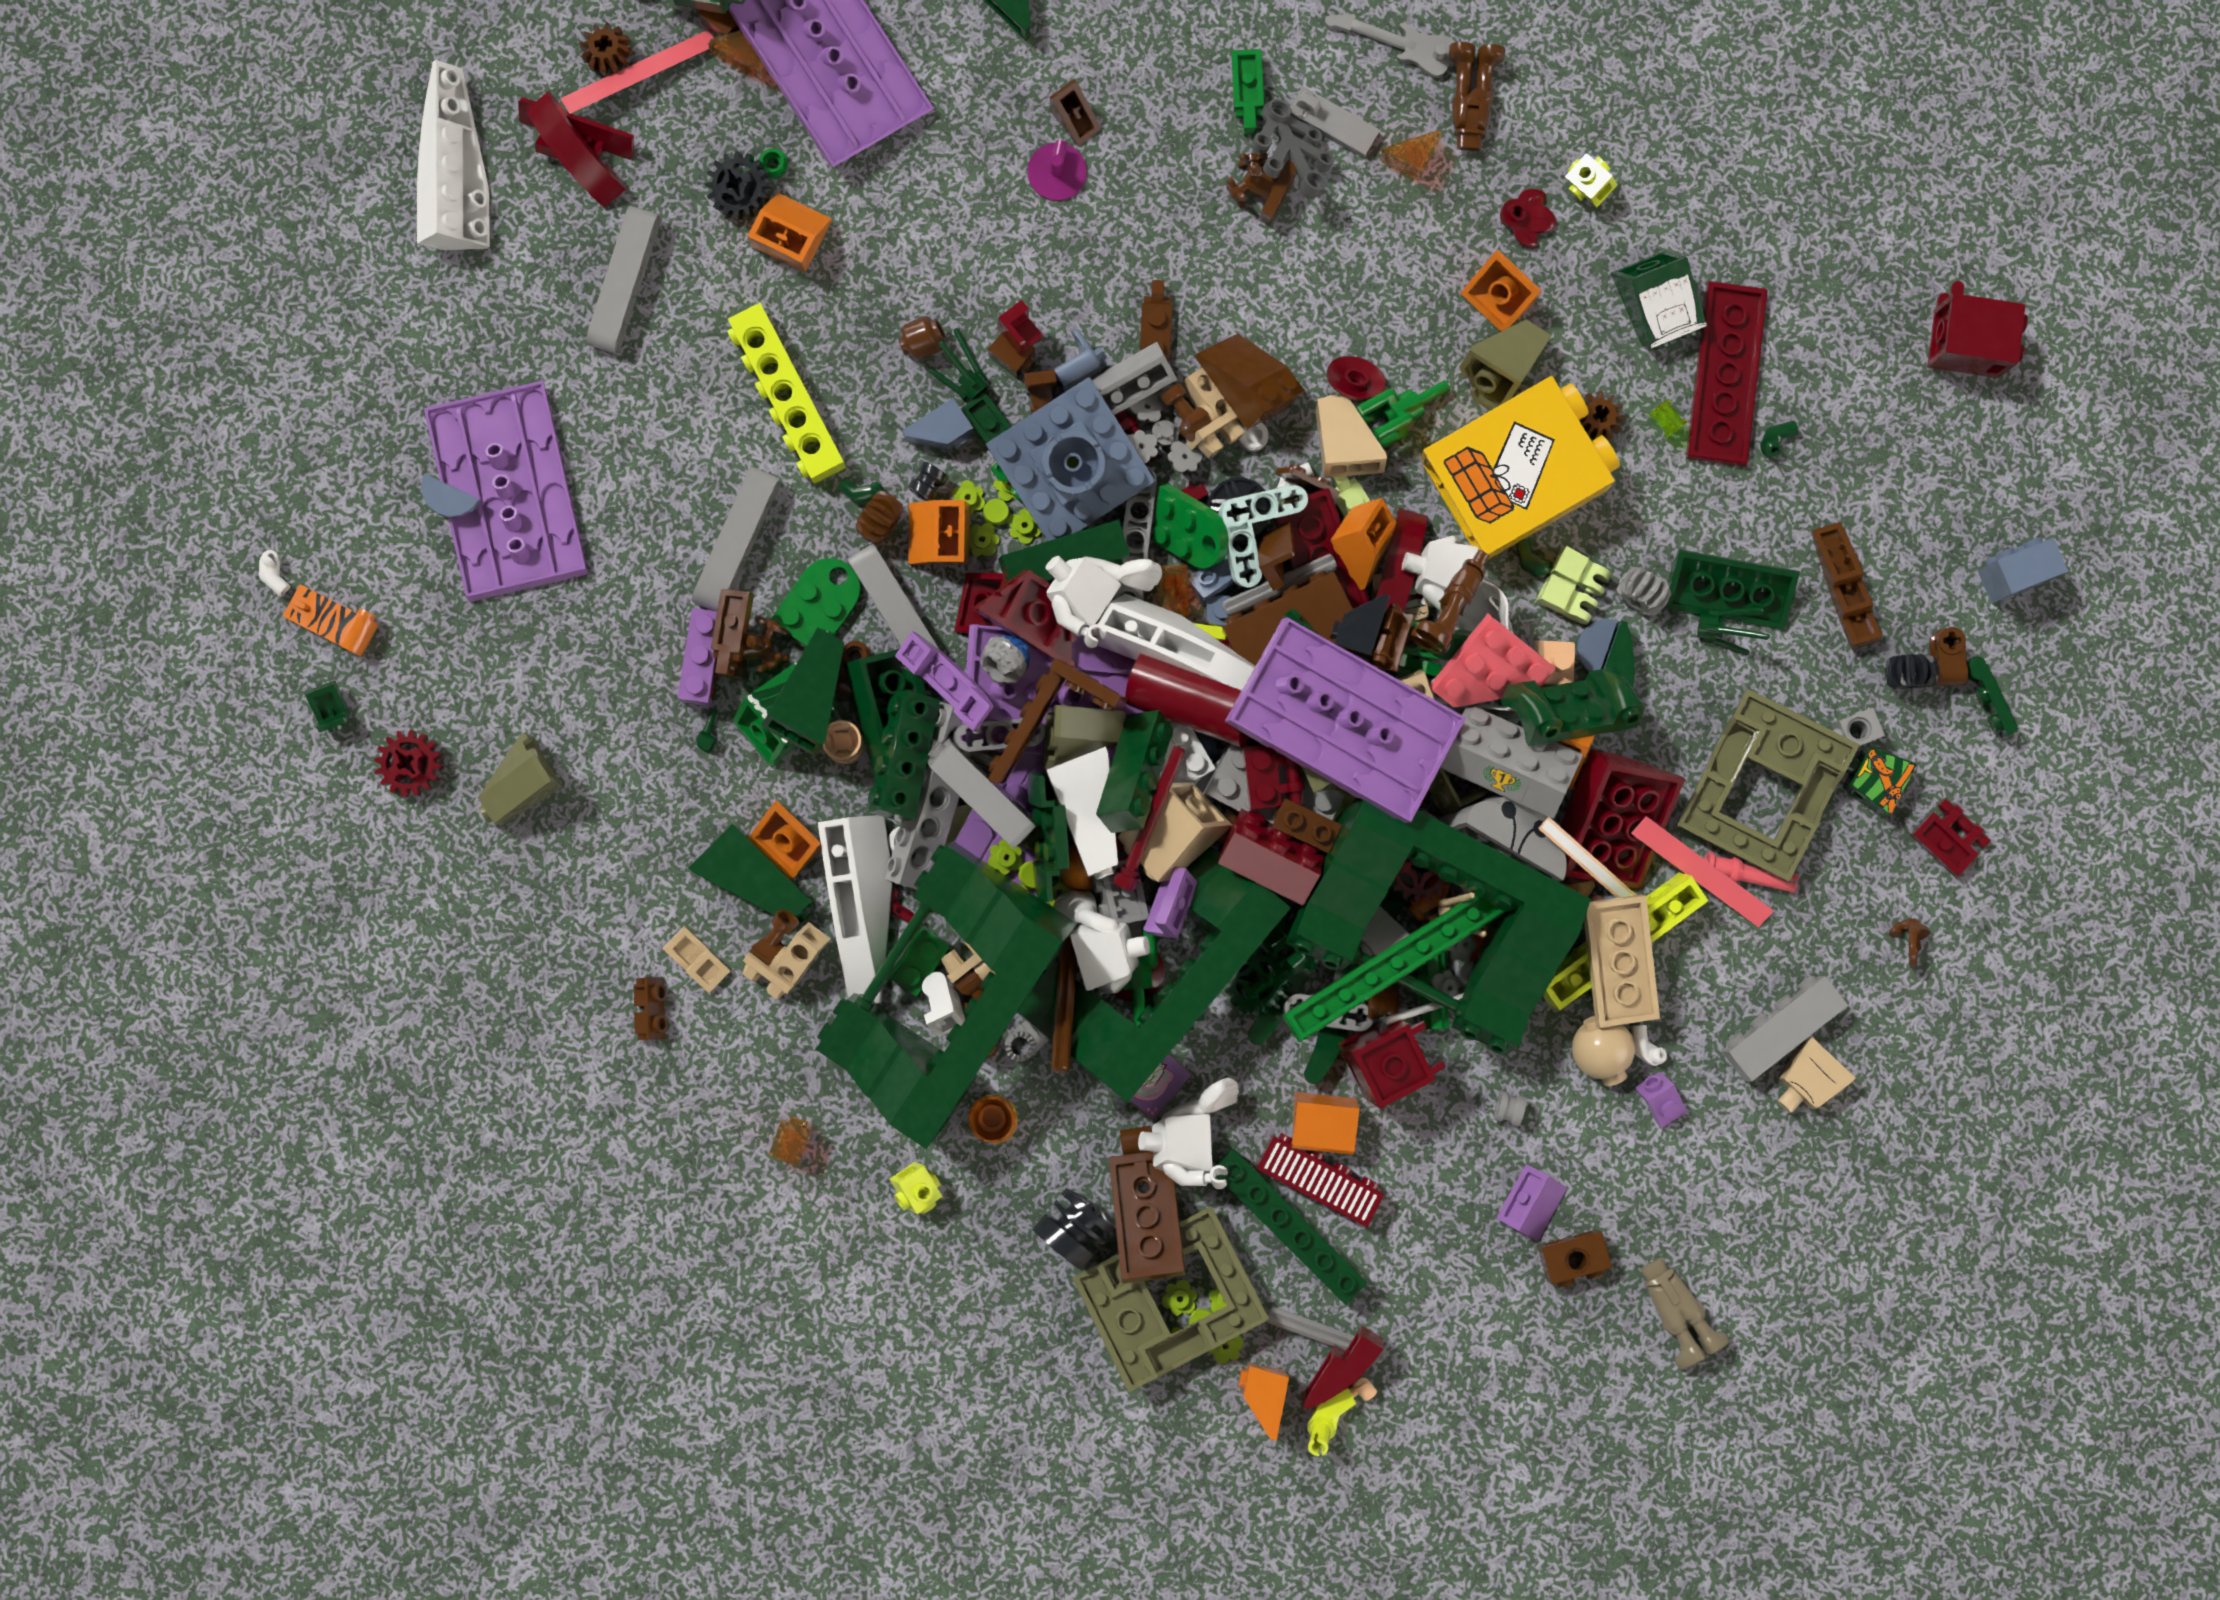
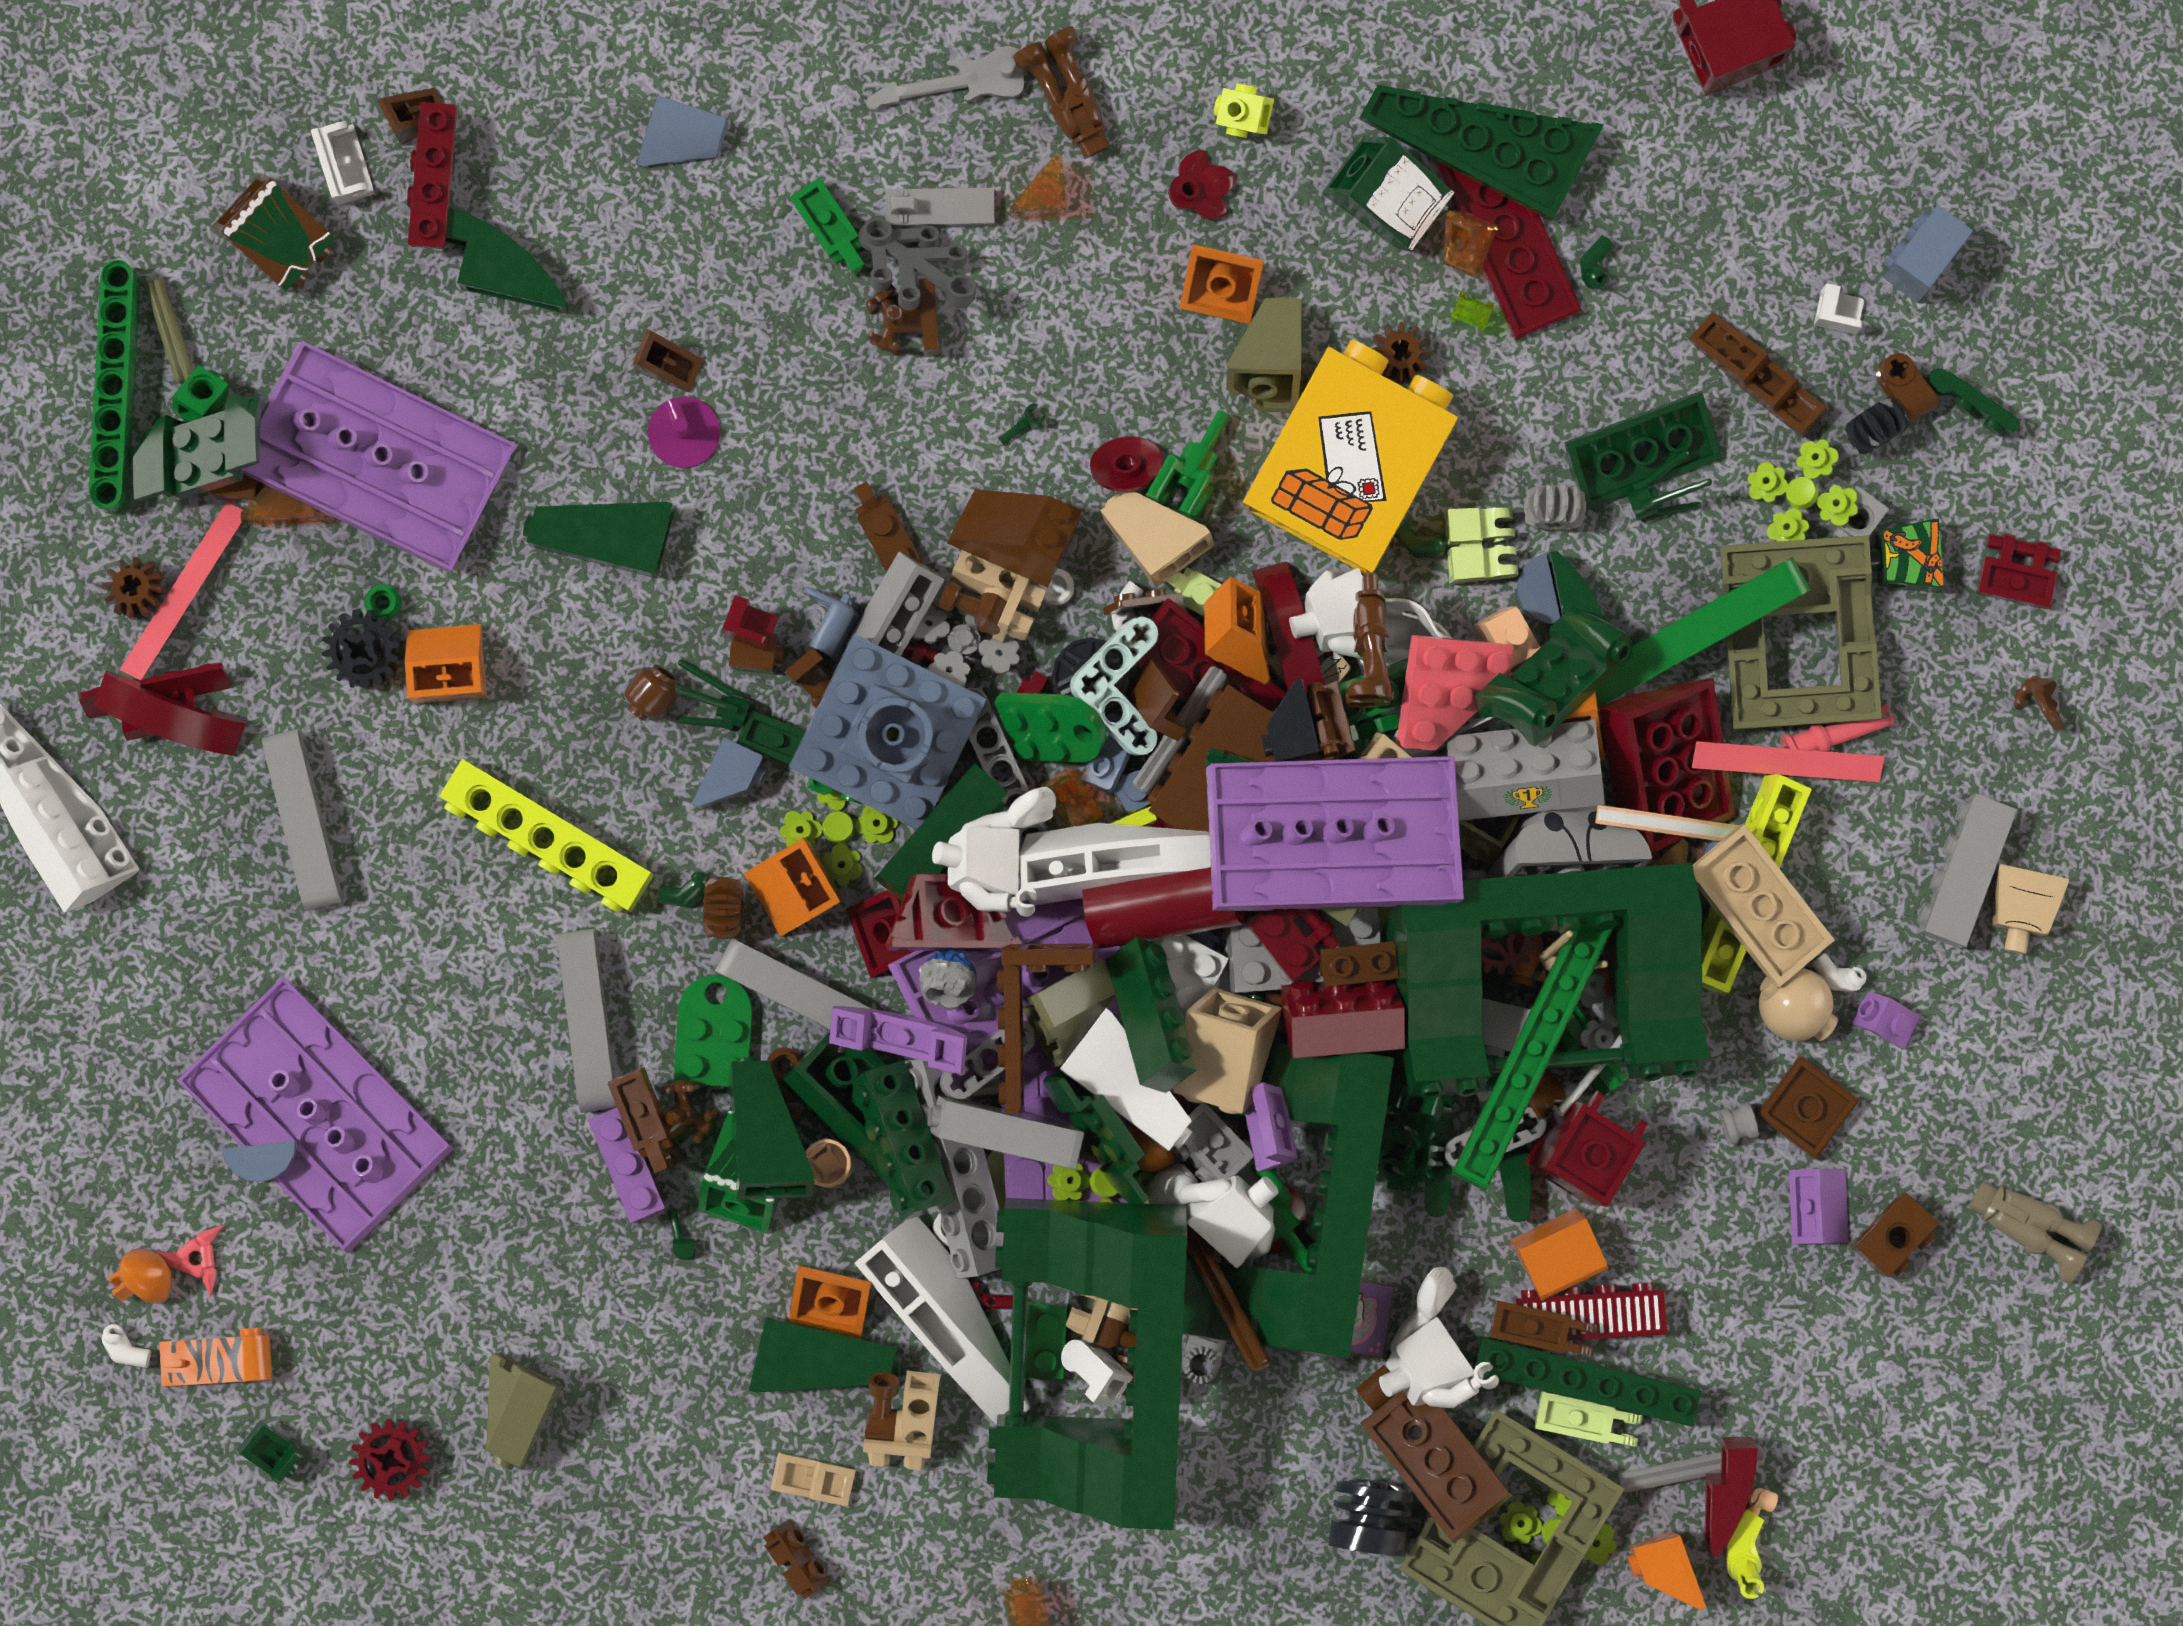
camera: 25 degrees left, 0 degrees up
(316, 530) = (144, 1275): none -> orange piece
(362, 552) = (182, 1261): none -> coral piece
(916, 1188) = (1184, 1576): neon yellow brick -> none
(928, 481) = (749, 839): black wheel -> none
(960, 210) = (610, 535): none -> dark green slope
(993, 1118) = (1218, 1456): orange hair -> none
(1127, 875) = (1206, 1125): dark red piece -> none
(1269, 1251) = (1582, 1419): none -> yellowish green hinge
(1277, 1166) = (1538, 1328): none -> reddish brown hinge
(1300, 308) = (1022, 425): none -> dark green hand
(1566, 1127) = (1807, 1107): none -> reddish brown plate
(1694, 366) = (1467, 241): none -> clear orange slope
(1701, 739) = (1706, 627): none -> green beam
(1757, 312) = (1498, 146): none -> dark green wing
(1829, 687) = (1803, 492): none -> lime plant
(1932, 575) = (1839, 310): none -> white panel

